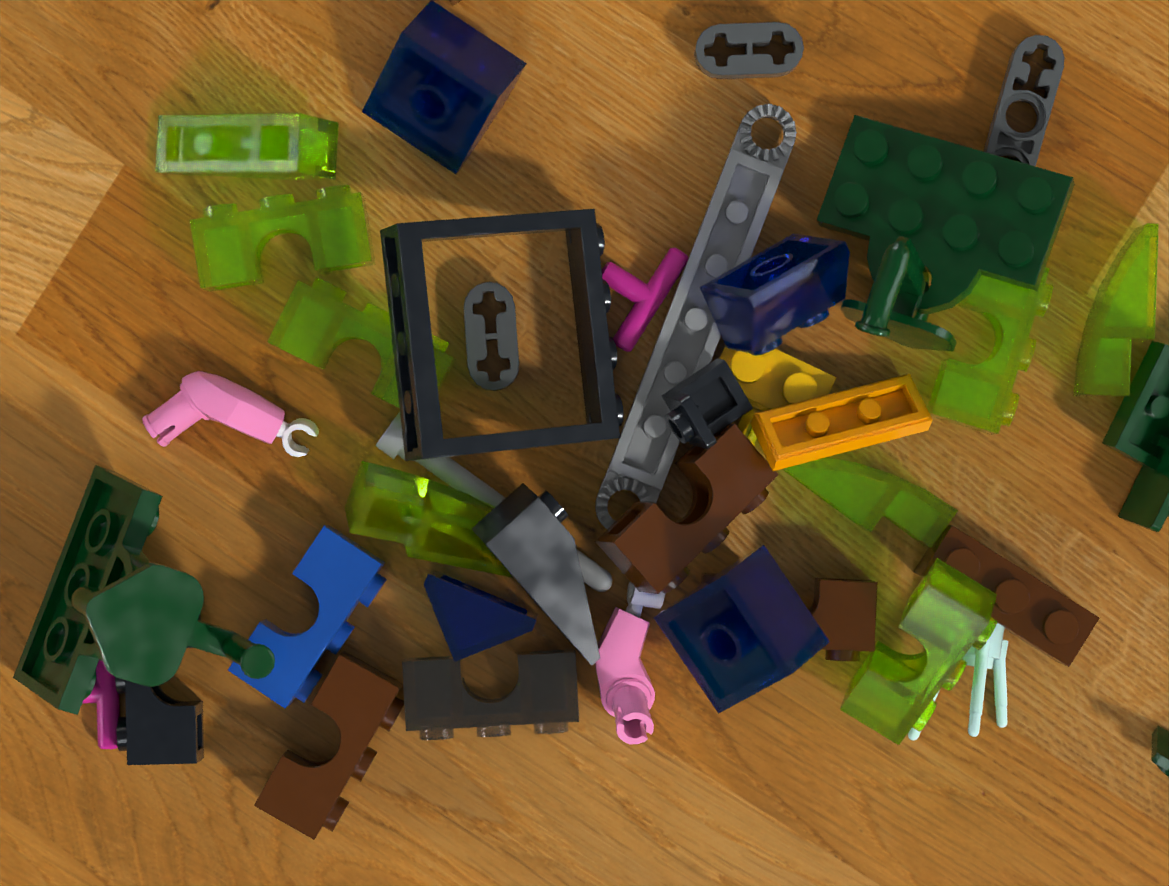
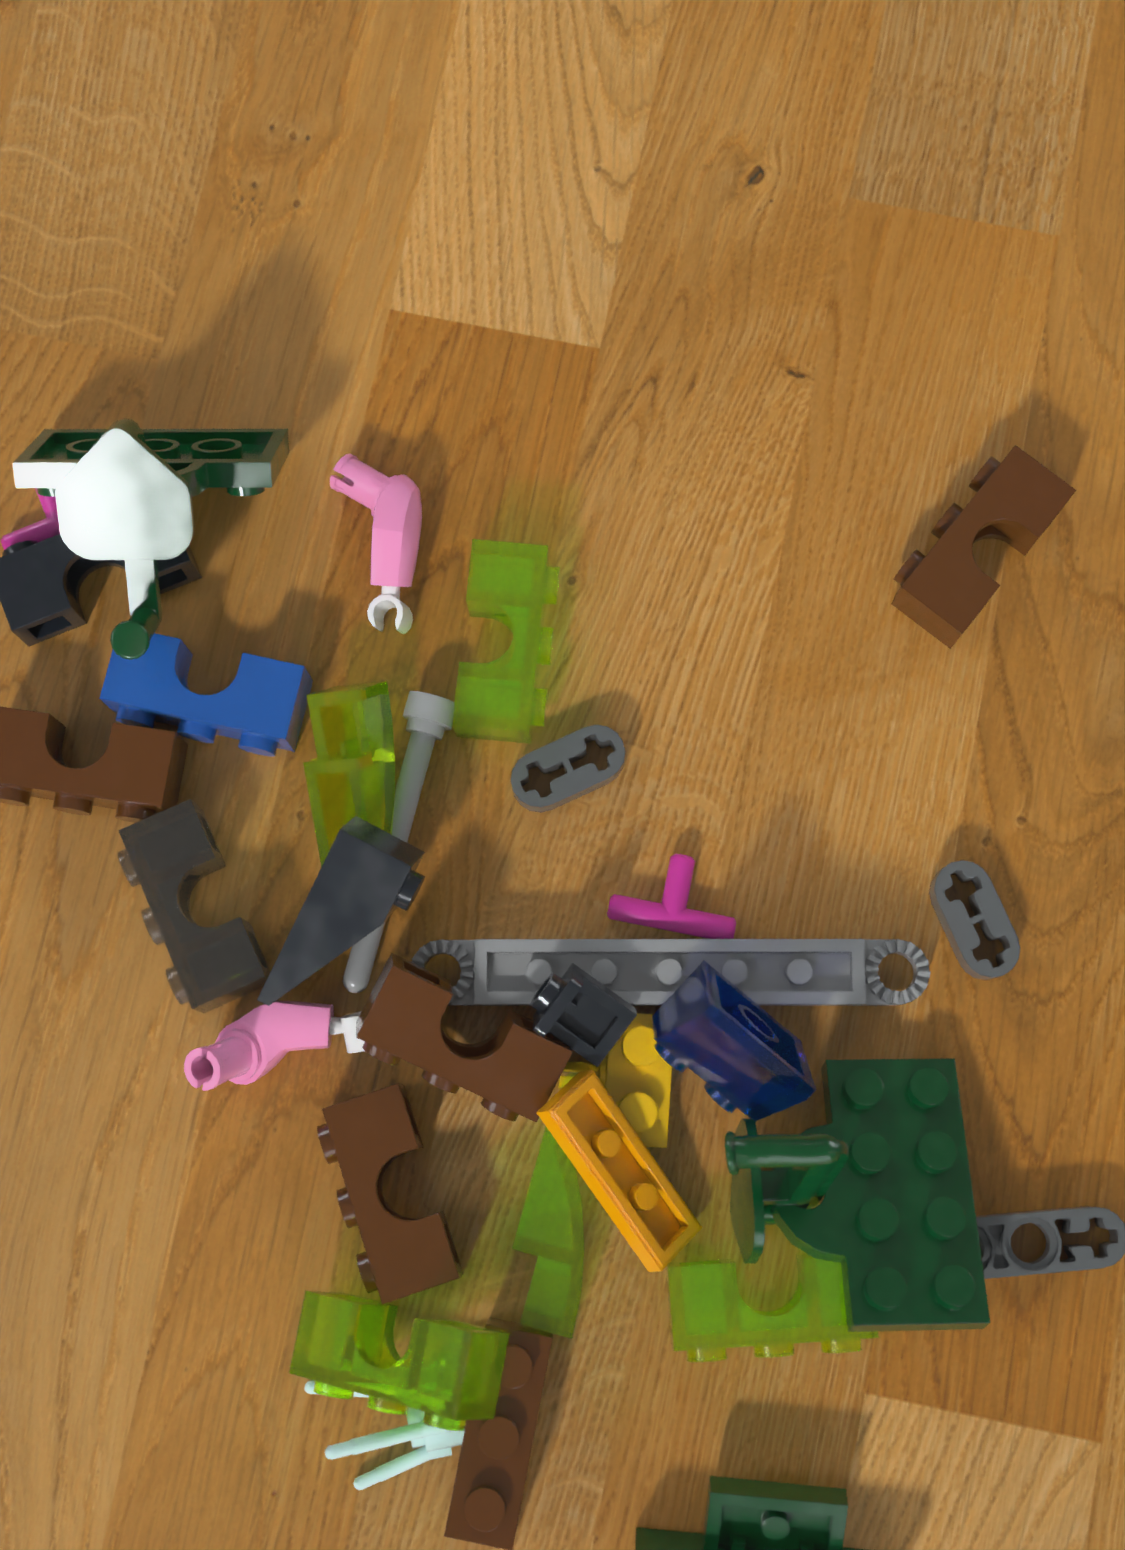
camera: 75 degrees right, 10 degrees down
(232, 242) = (561, 474): clear neon green arch -> none
(248, 146) = (666, 455): clear neon green slope -> none
(414, 342) = (528, 676): black window -> none
(443, 86) = (806, 619): clear blue slope -> none
(472, 617) = (264, 850): clear blue slope -> none
(742, 630) = (350, 1146): clear blue slope -> none
(1120, 314) = (857, 1439): clear neon green slope -> none

